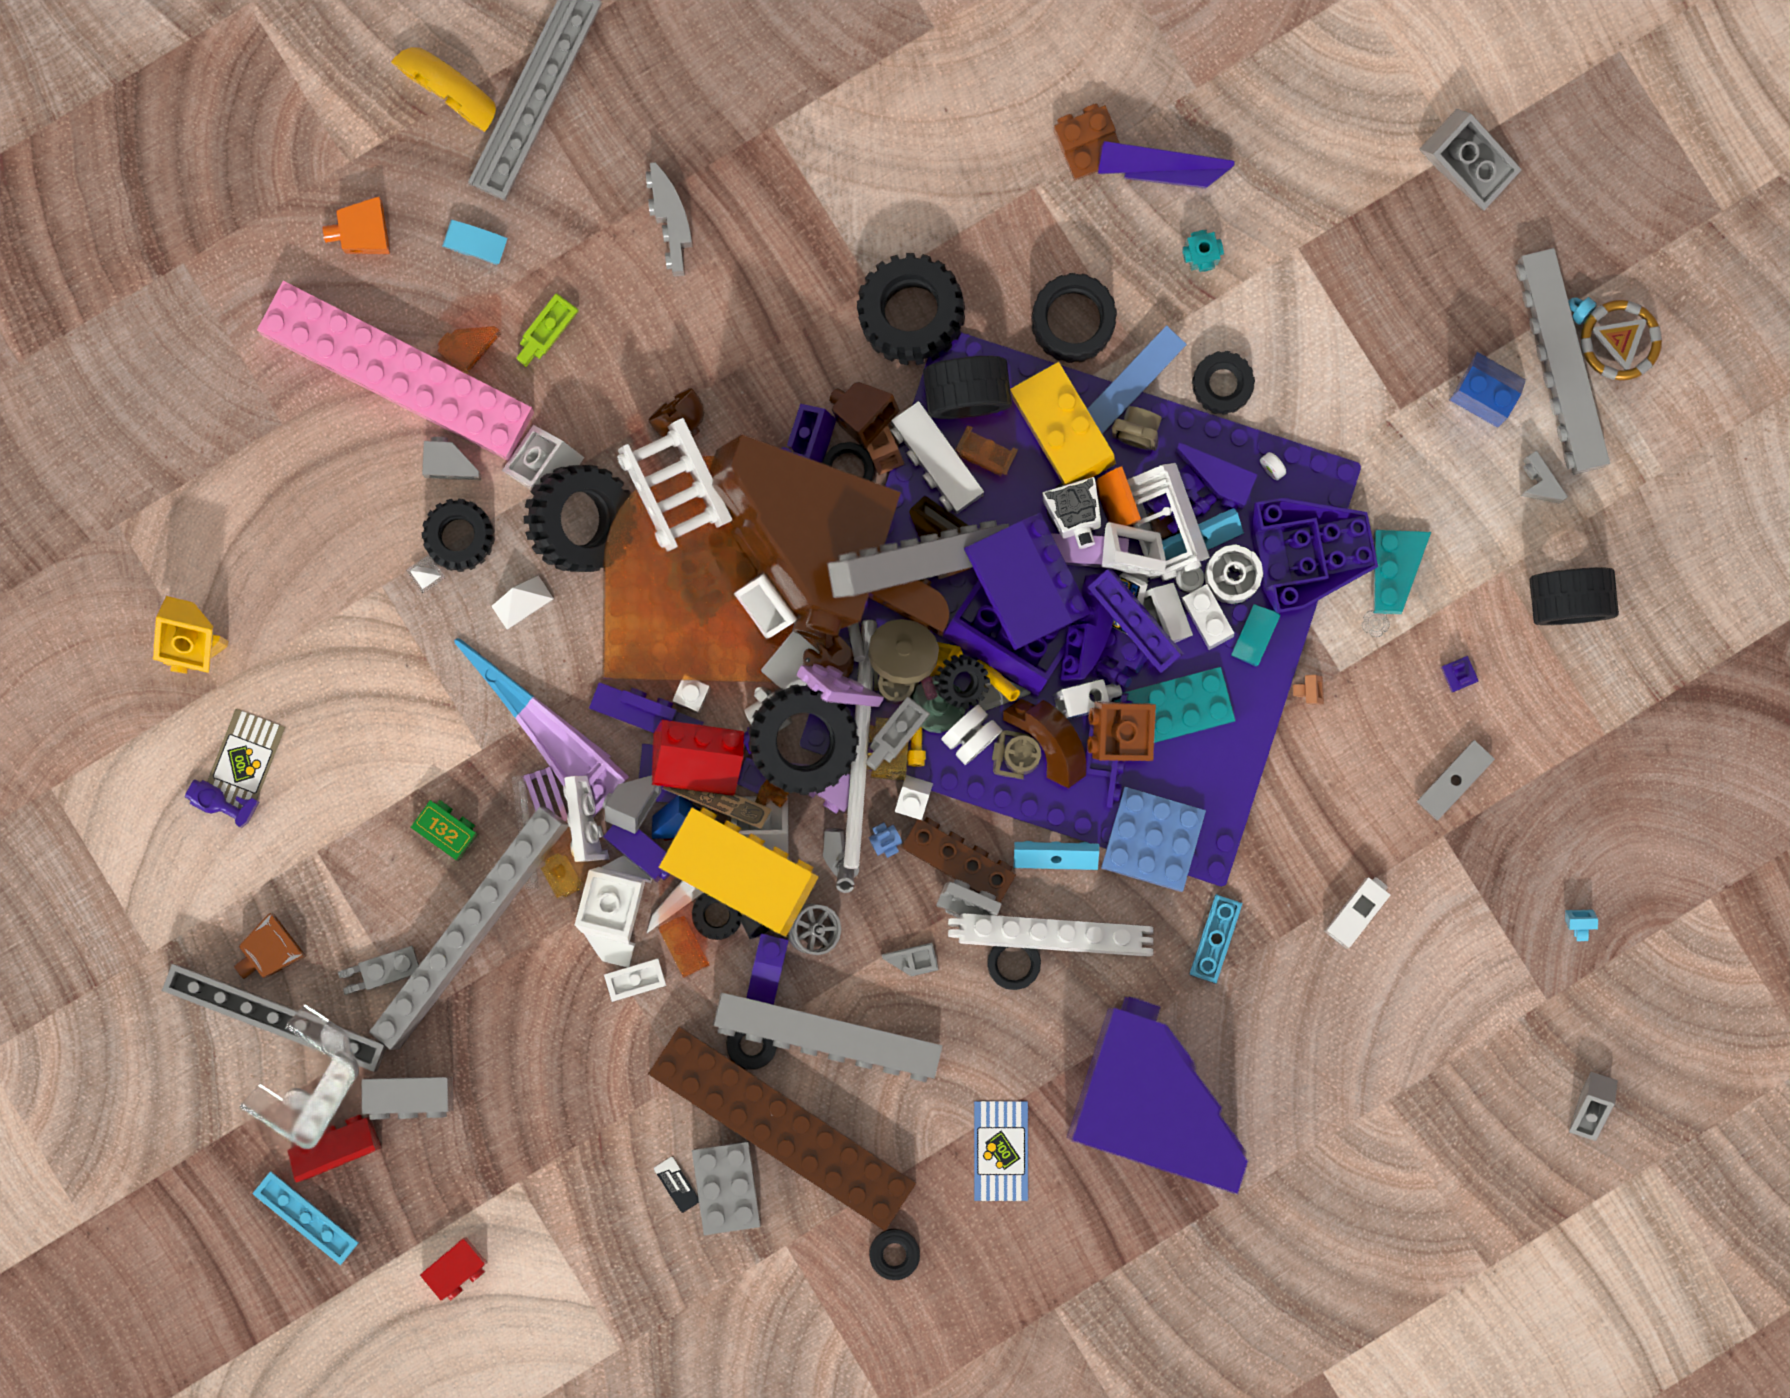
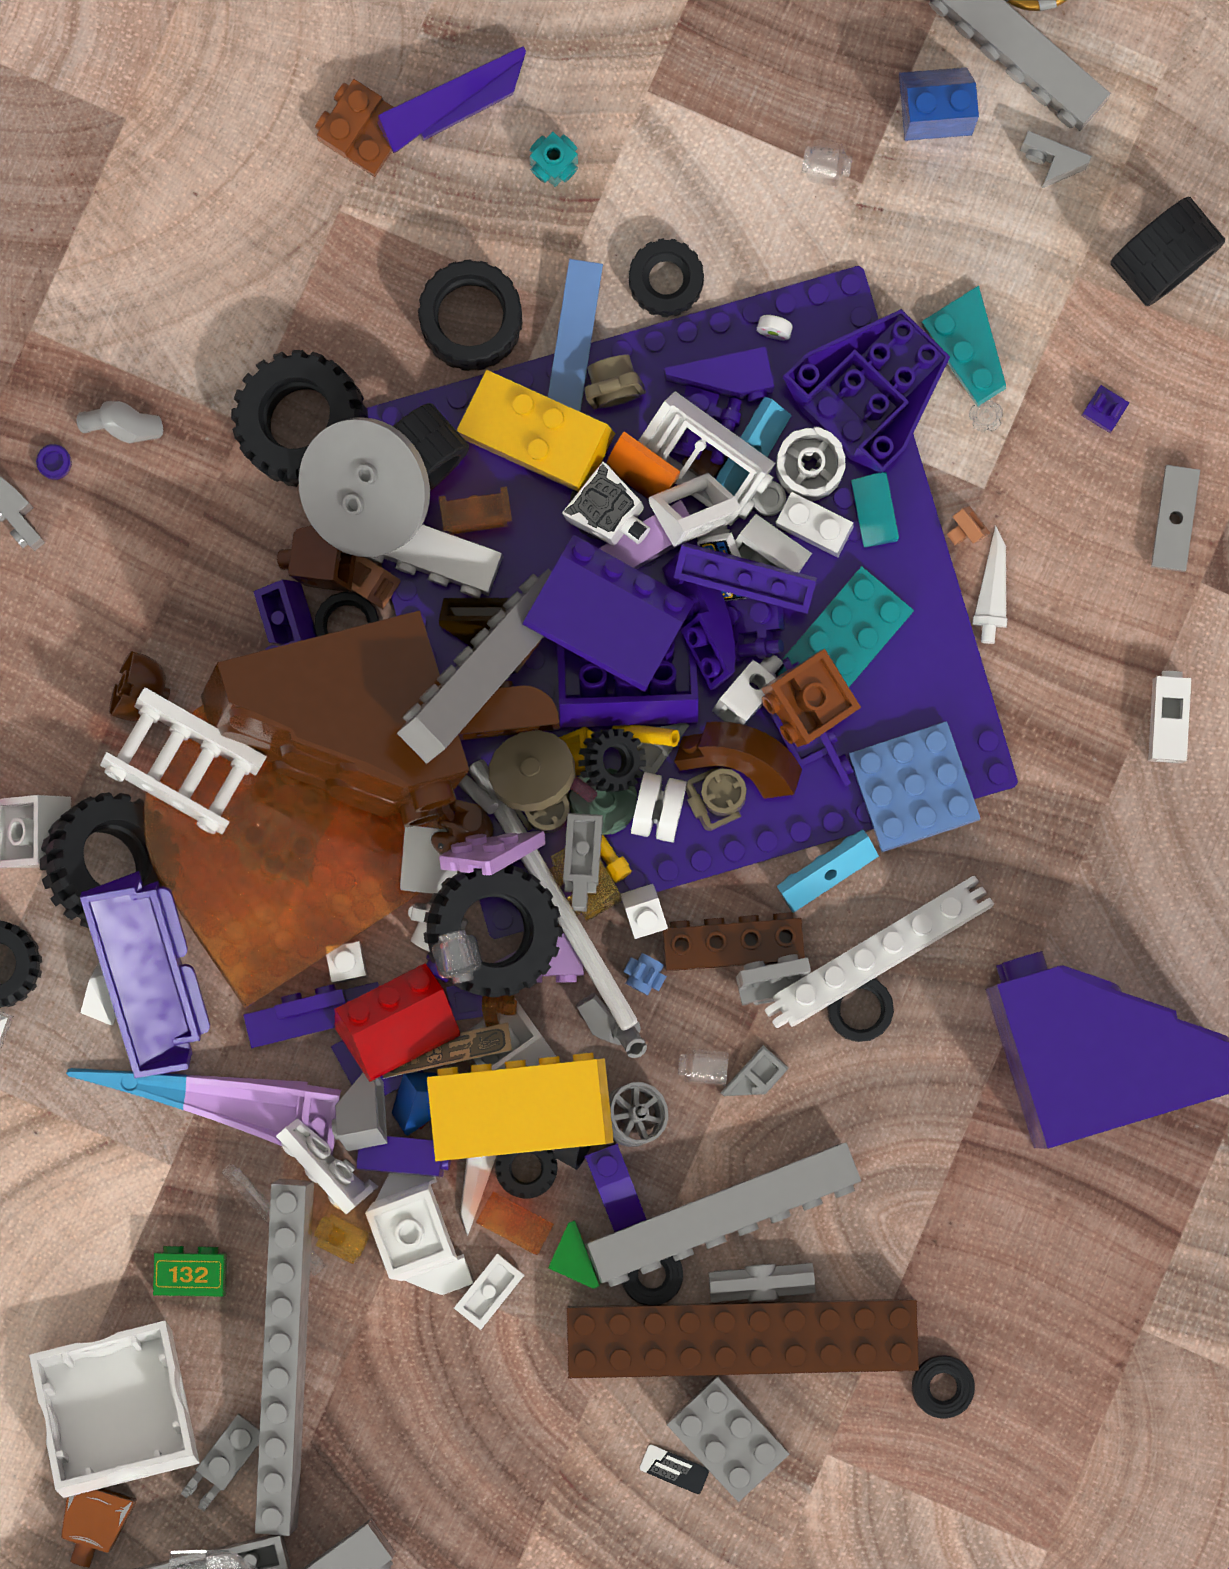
camera: 30 degrees left, 0 degrees up
(332, 885) = (114, 1409): none -> white tile
(538, 774) = (247, 1151): lavender tile -> none
(550, 613) = (141, 962): none -> slope
(706, 996) = (572, 1258): none -> green slope
(727, 225) = (53, 462): none -> dark purple tile
(765, 606) = (360, 820): white tile -> none
(766, 740) = (457, 956): none -> clear head
(790, 230) = (121, 422): none -> light grey arm
(821, 1100) = (761, 1282): none -> light grey piece
(882, 929) = (704, 1066): none -> clear brick
(921, 384) = (364, 487): none -> light grey plate
(1000, 1150) = (977, 1207): sticker -> none
(1211, 956) = (1040, 822): medium azure tile -> none
(1292, 751) = (992, 597): none -> white bar
(1385, 378) = (826, 162): none -> clear head

